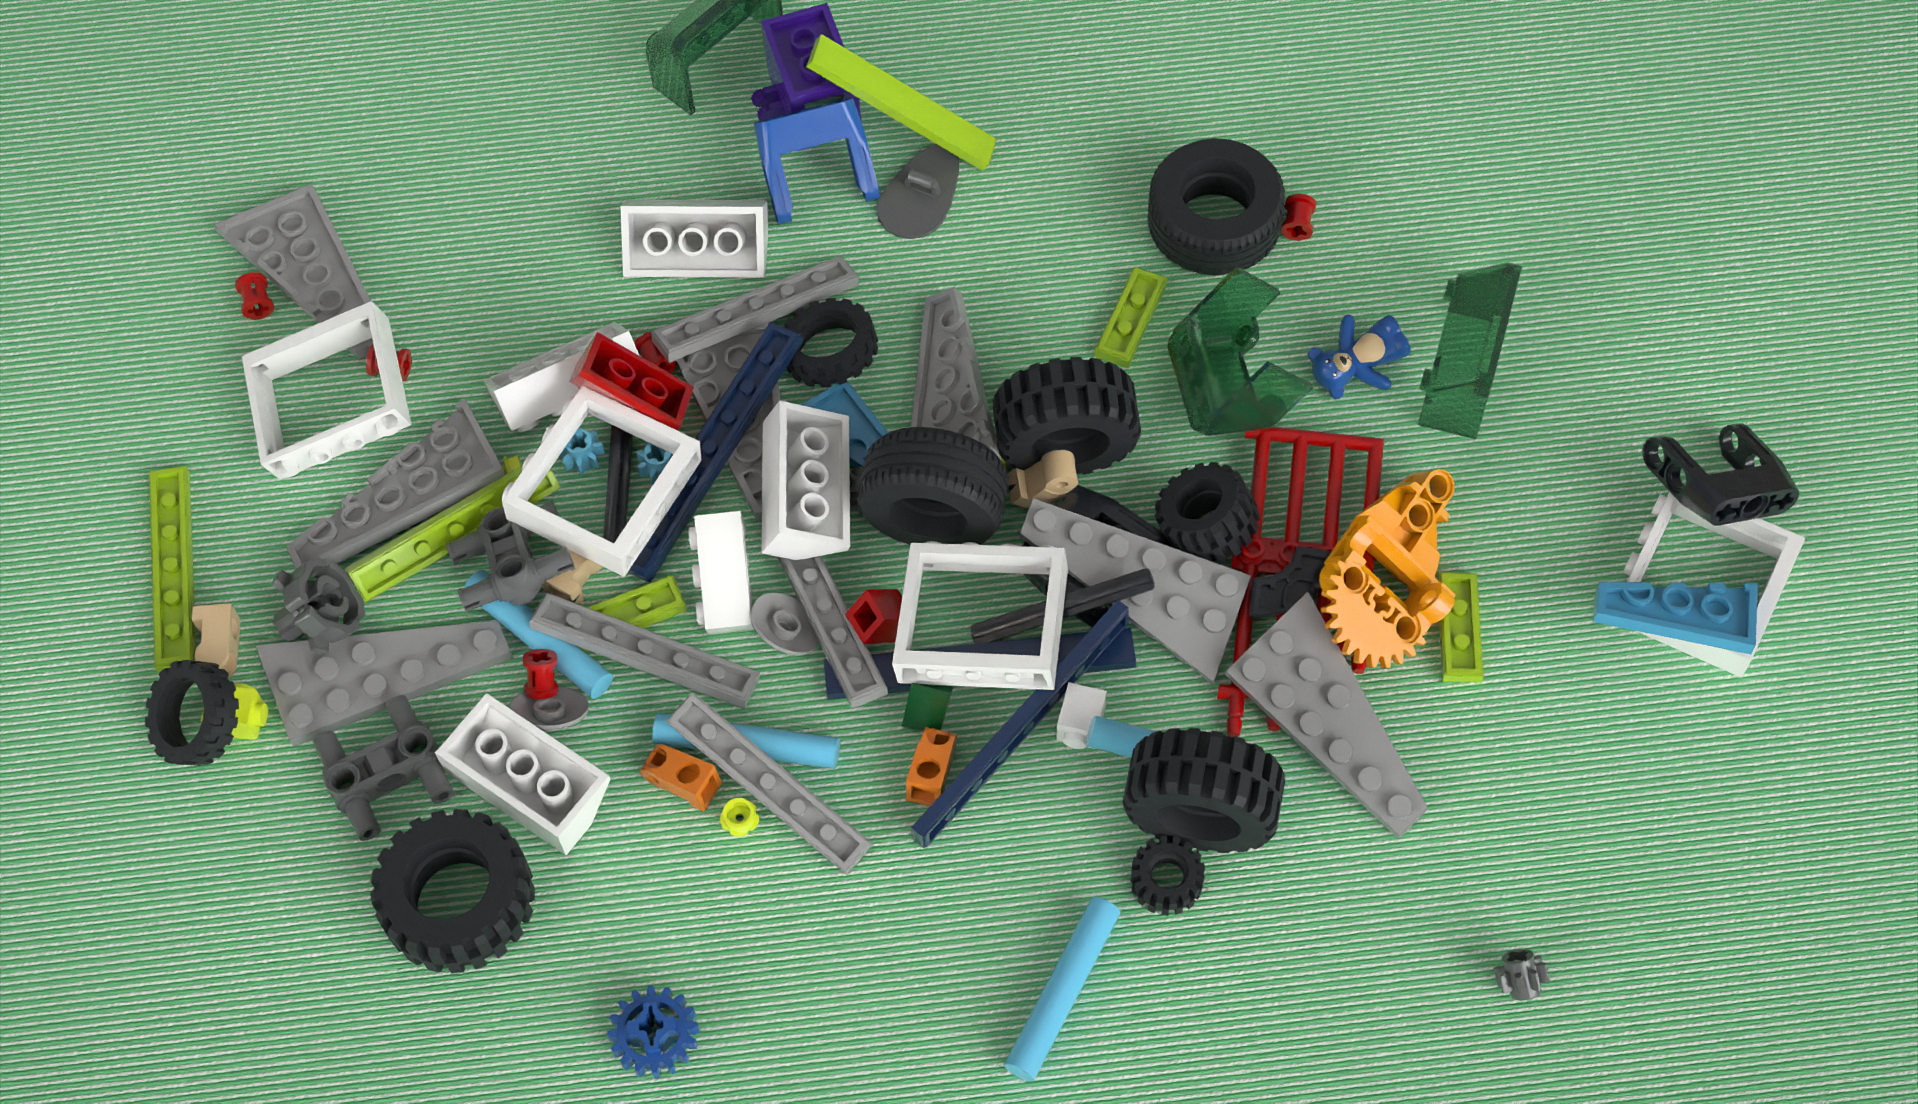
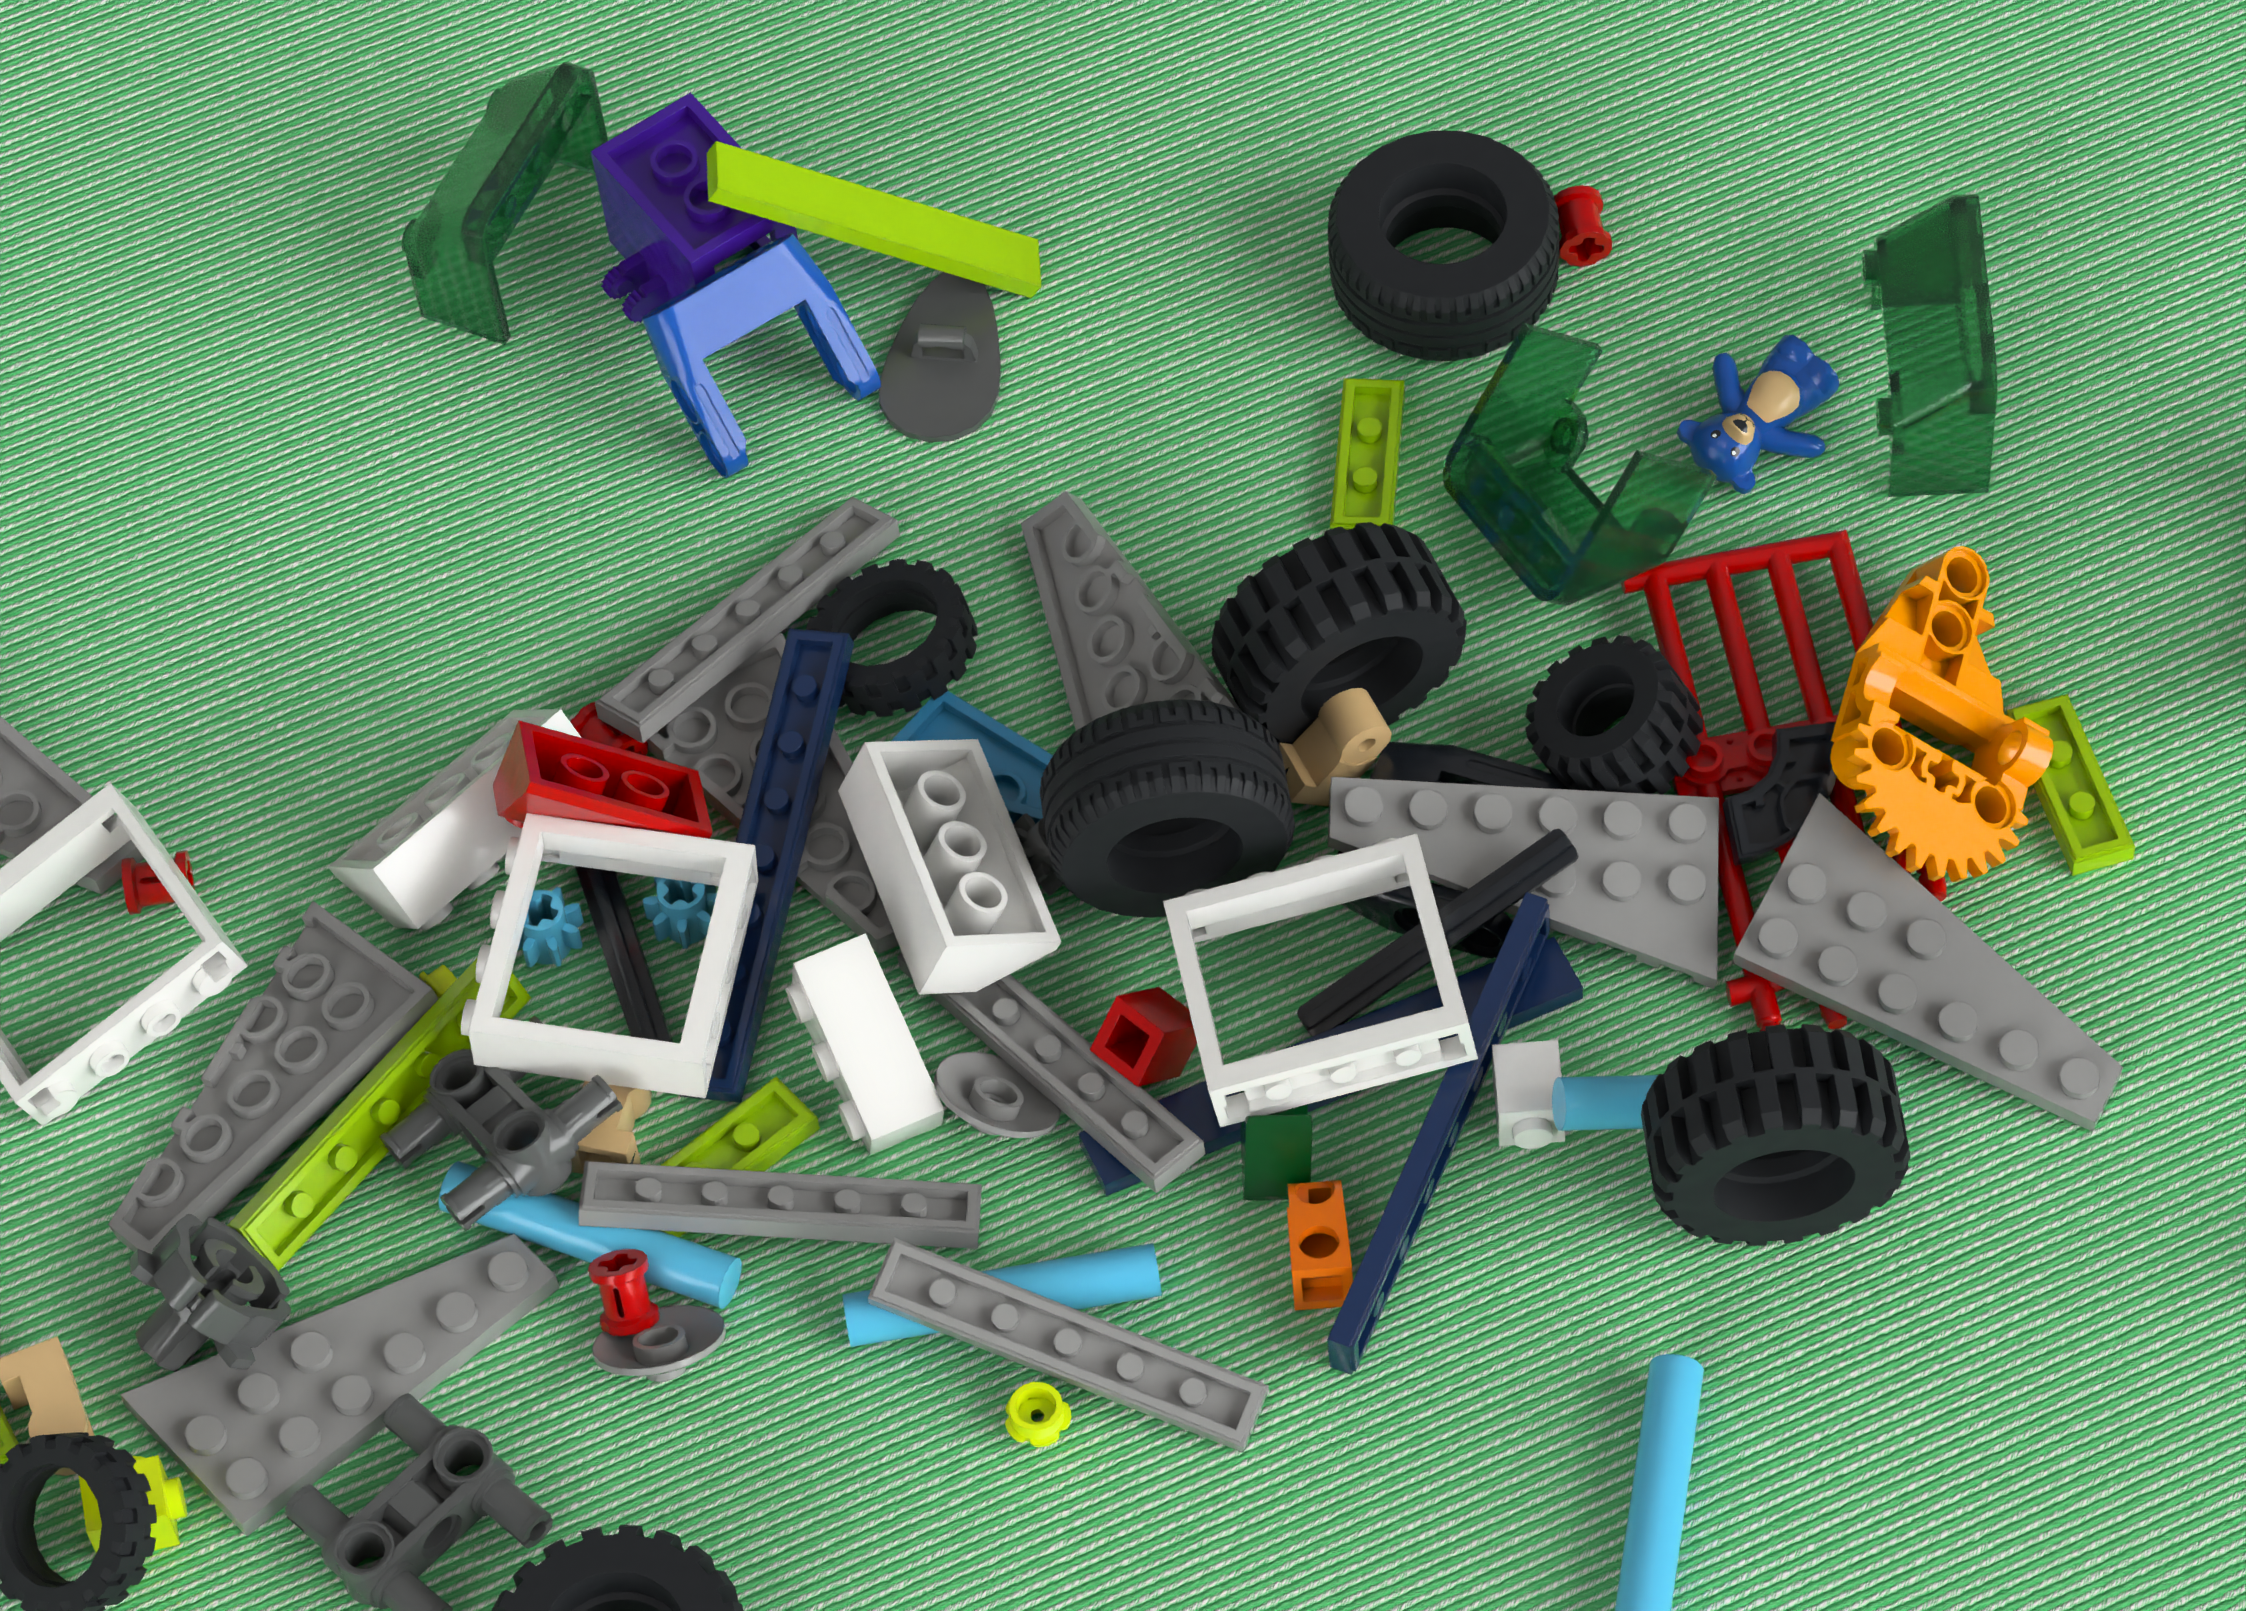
camera: 15 degrees left, 5 degrees down
(524, 773) = (663, 1450): white slope -> none
(682, 775) = (918, 1378): orange leg -> none
(694, 238) = (599, 537): white slope -> none
(1165, 898) = (1756, 1258): black tyre -> none

